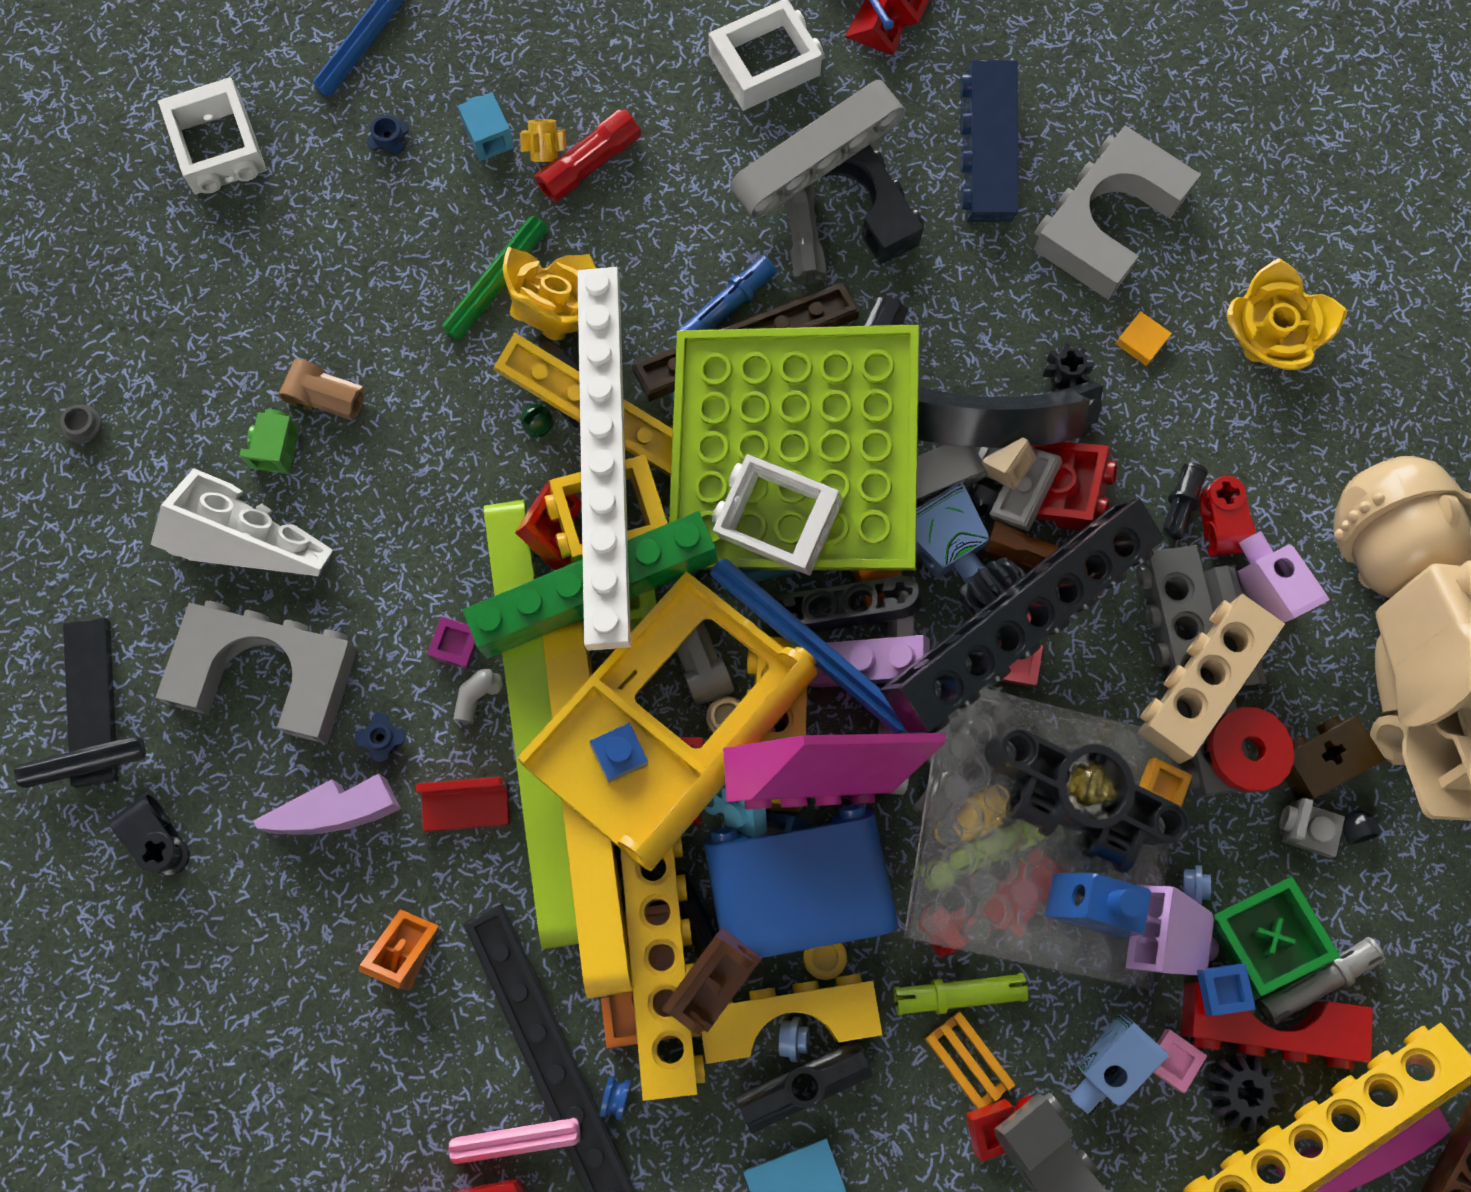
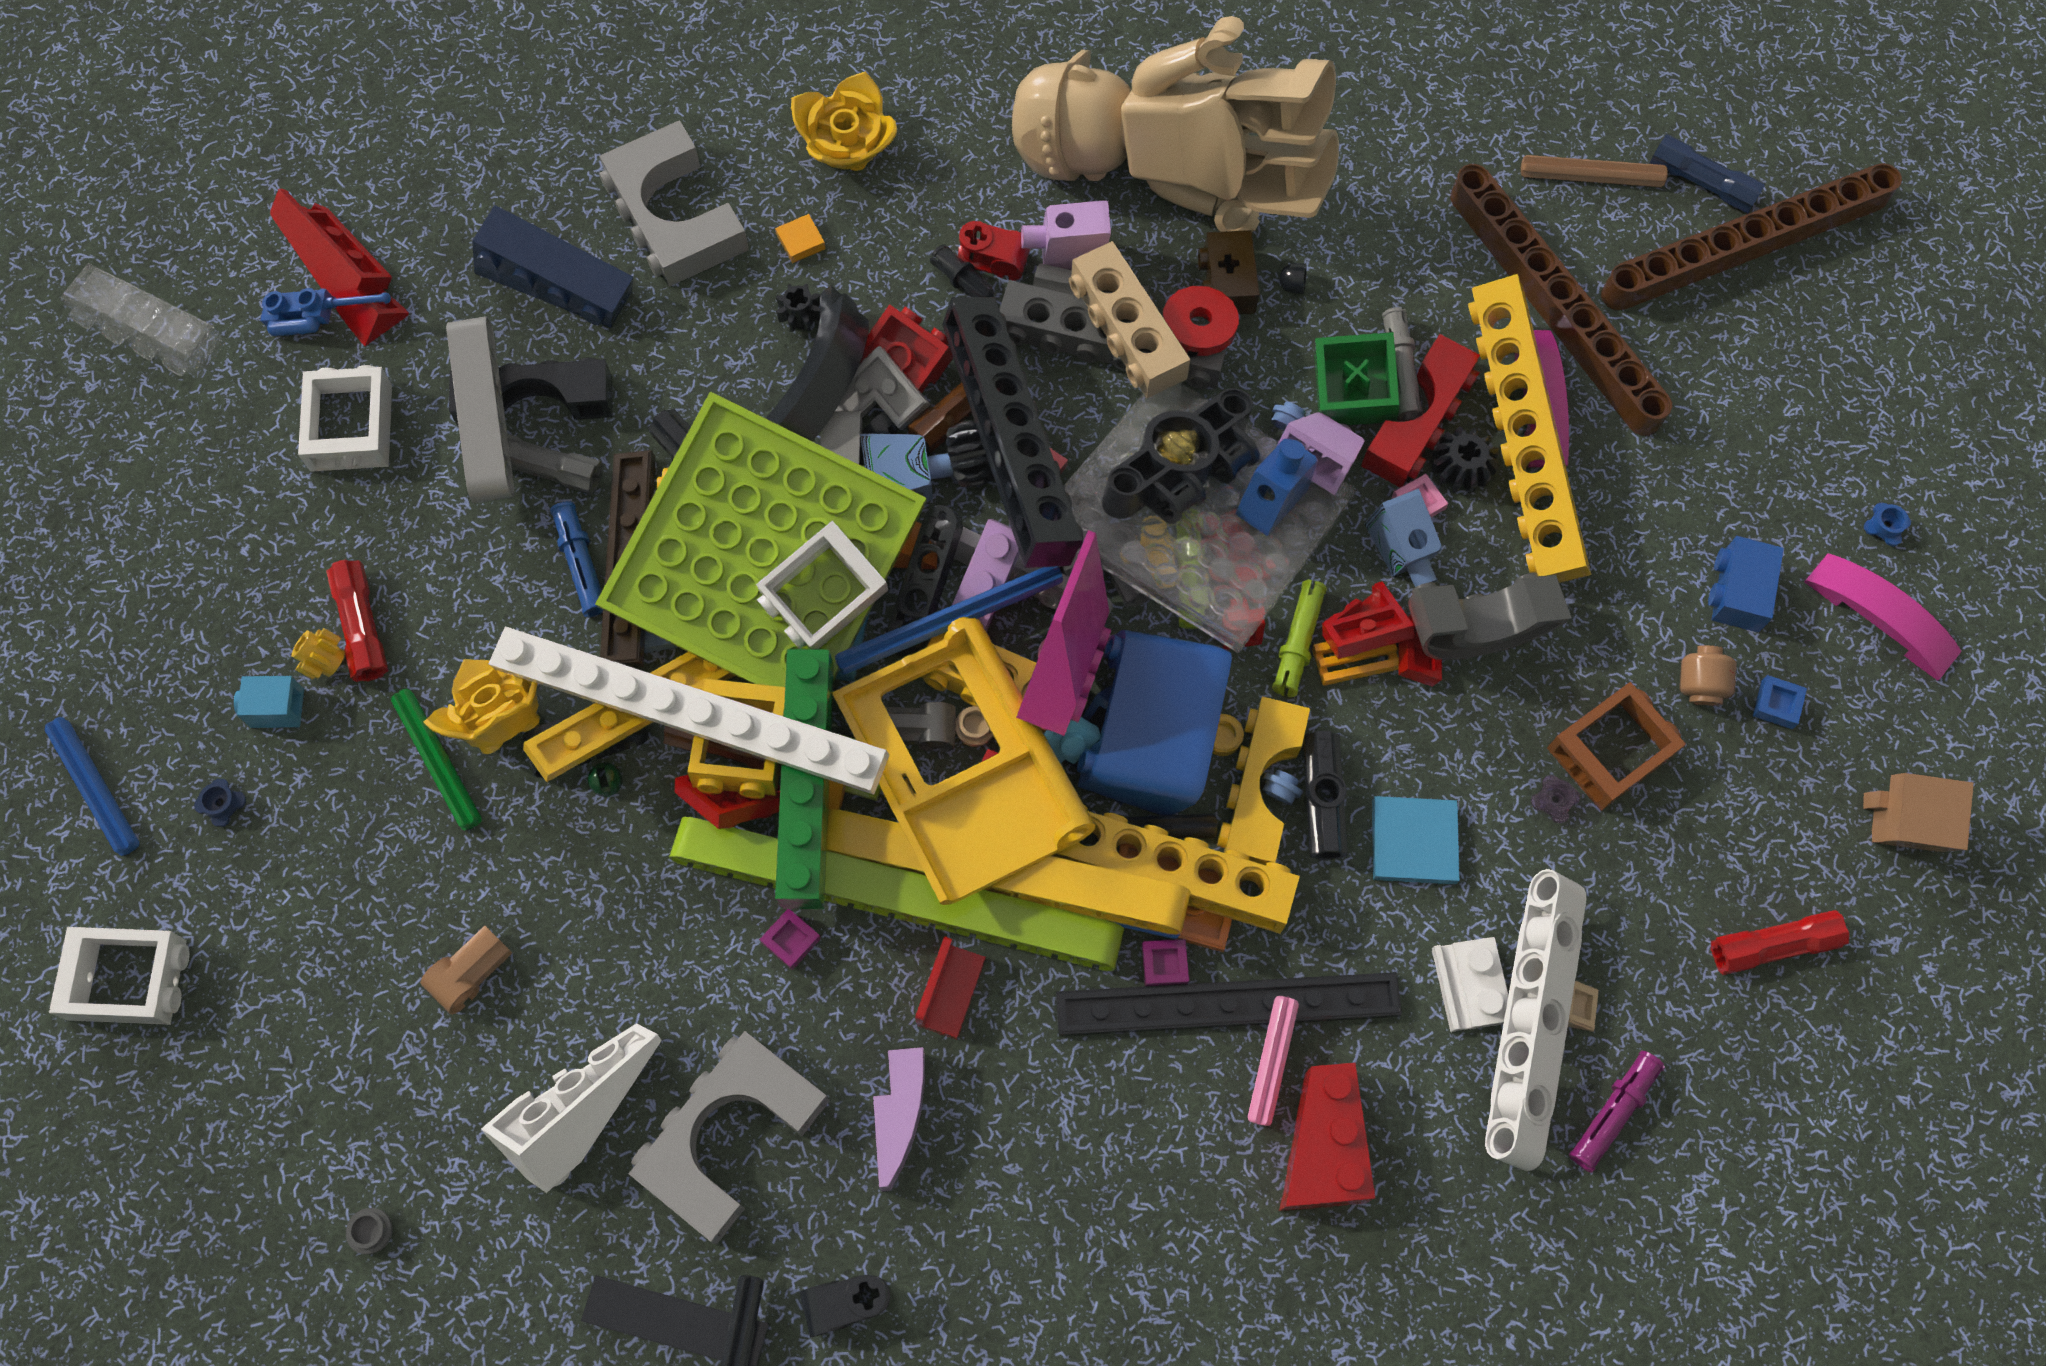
camera: 65 degrees left, 5 degrees down
(271, 442) = (495, 1037): bright green brick -> none
(380, 749) = (846, 1056): dark blue plate -> none
(400, 951) = (1061, 1098): orange slope -> none
(472, 690) = (843, 941): light grey arm -> none
(567, 996) = (1165, 962): none -> magenta plate
(615, 1098) = (1271, 957): blue bush -> none
(618, 753) = (975, 814): blue plate -> none
(712, 982) = (1211, 817): reddish brown hinge -> none
(1004, 1059) = (1368, 624): none -> red wing
(1010, 463) = (866, 387): tan slope -> none
(1165, 780) = (1194, 395): light orange tile -> none
(1226, 989) = (1383, 427): blue plate -> none
(1311, 828) = (1279, 313): light grey bracket -> none

